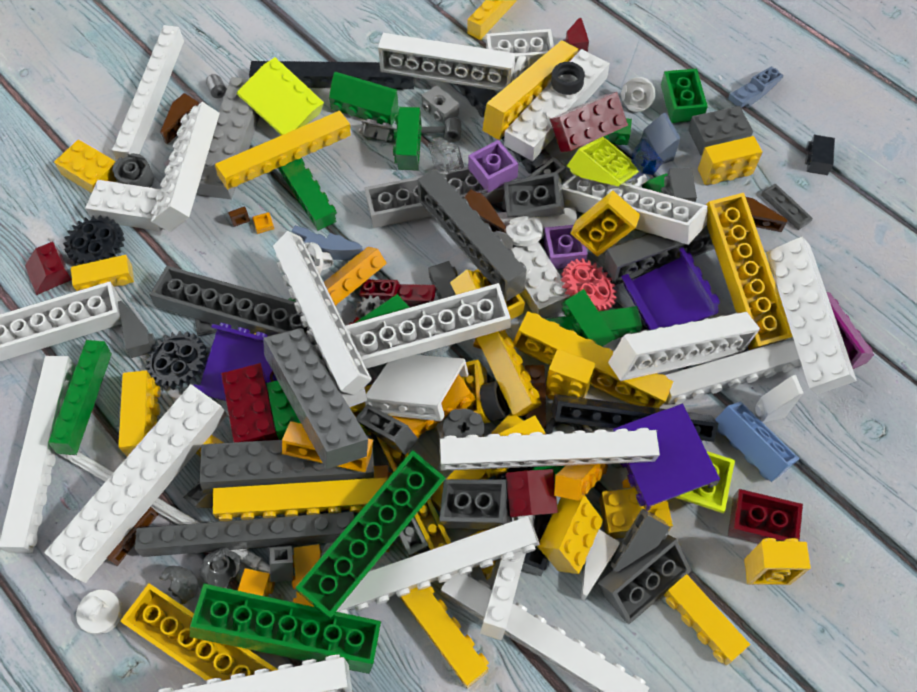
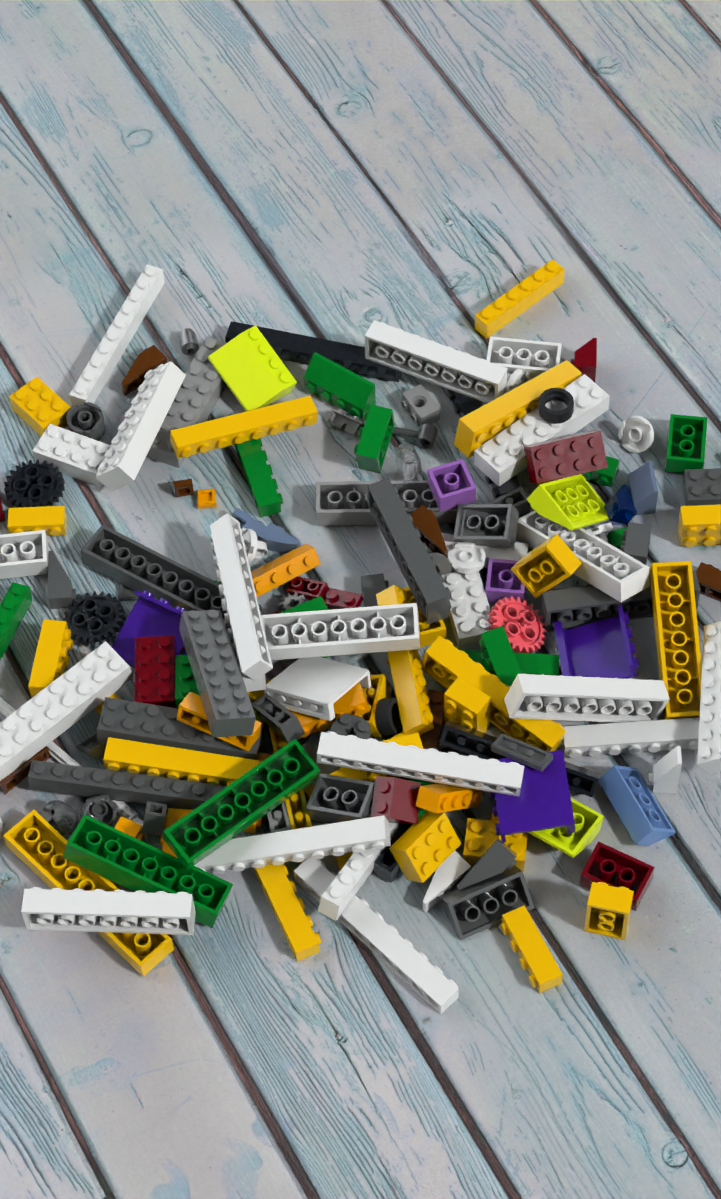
camera: 15 degrees right, 5 degrees down
(644, 414) = (522, 752): none -> dark grey tile

